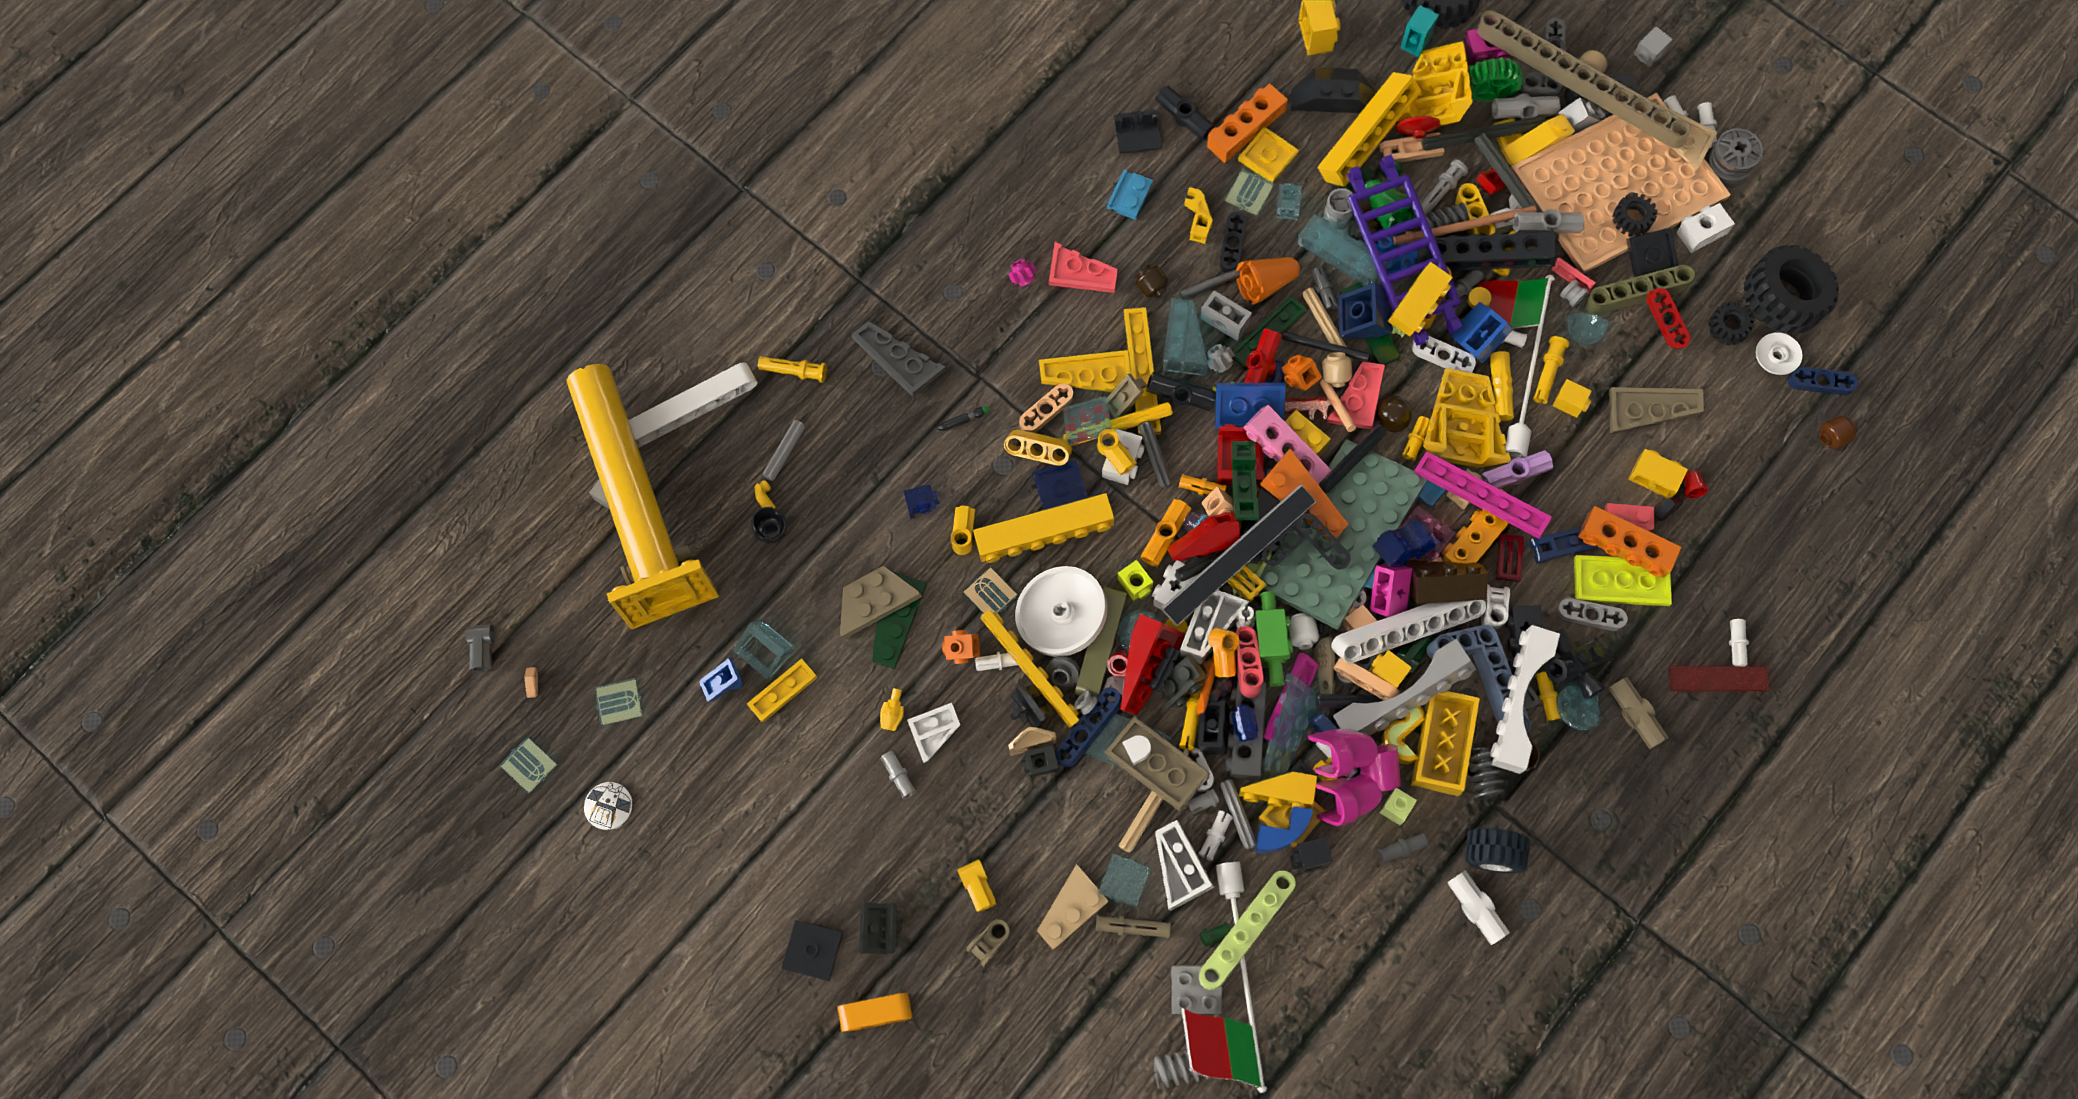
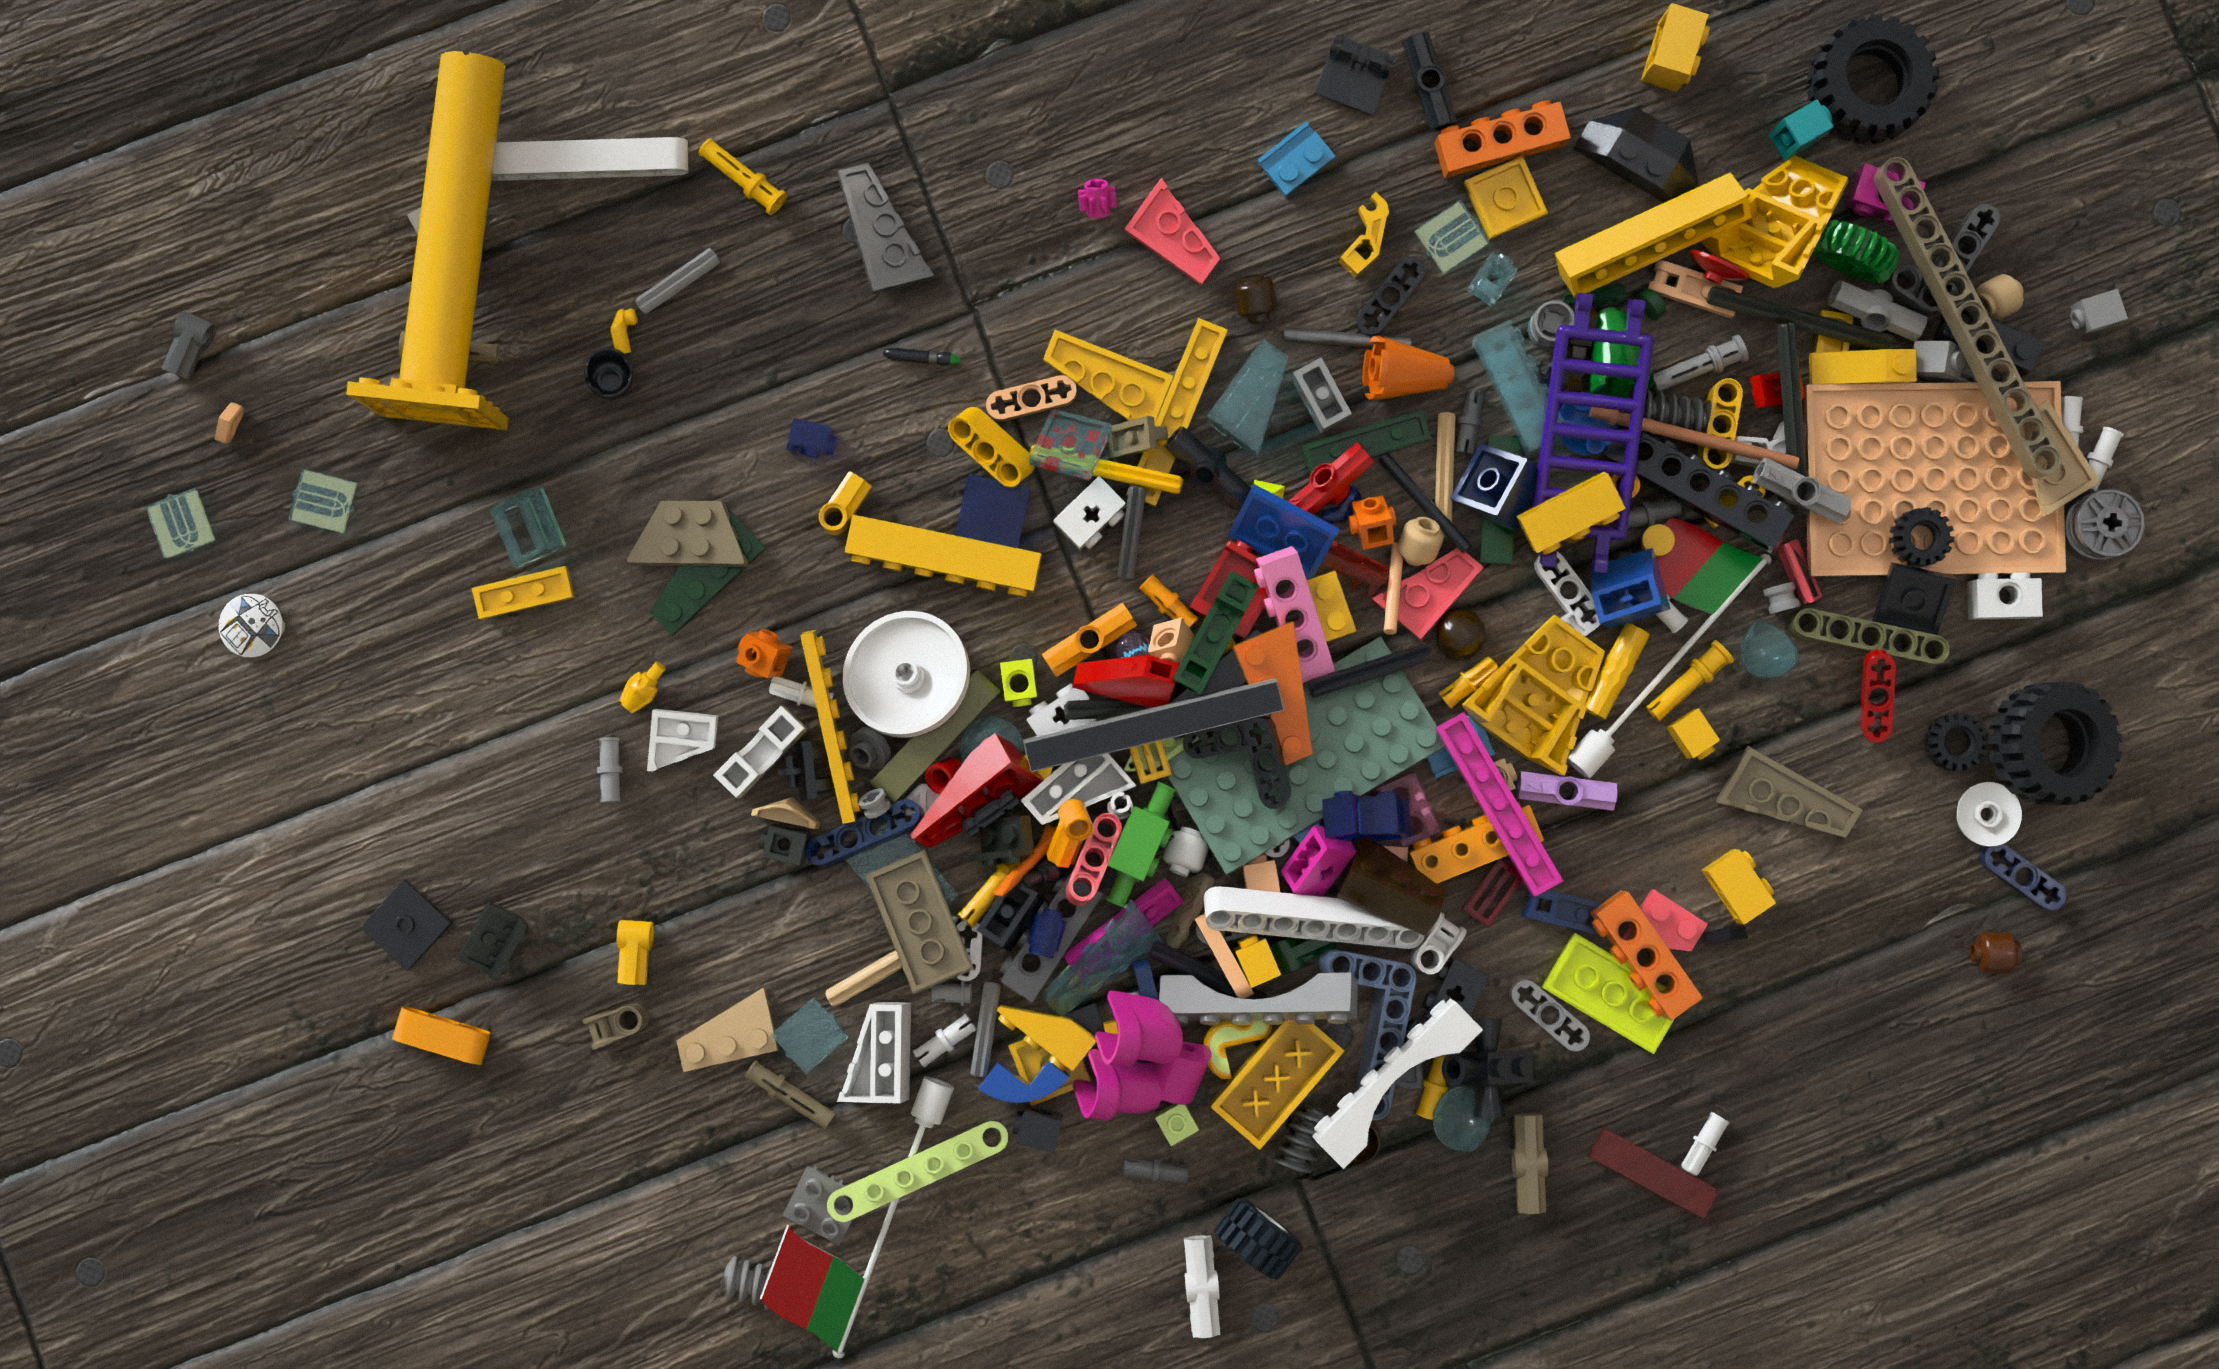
camera: 25 degrees right, 15 degrees up
(720, 680) = (455, 543): slope -> none
(990, 592) = (837, 601): piece -> none
(995, 705) = (761, 753): none -> white arch
(1116, 453) = (1078, 513): yellow piece -> none
(1137, 748) = (904, 894): white tile -> none
(1215, 934) = (880, 1154): dark green pin -> none
(1220, 358) = (1283, 448): light grey gear -> none
(1694, 485) = (1775, 923): red piece -> none

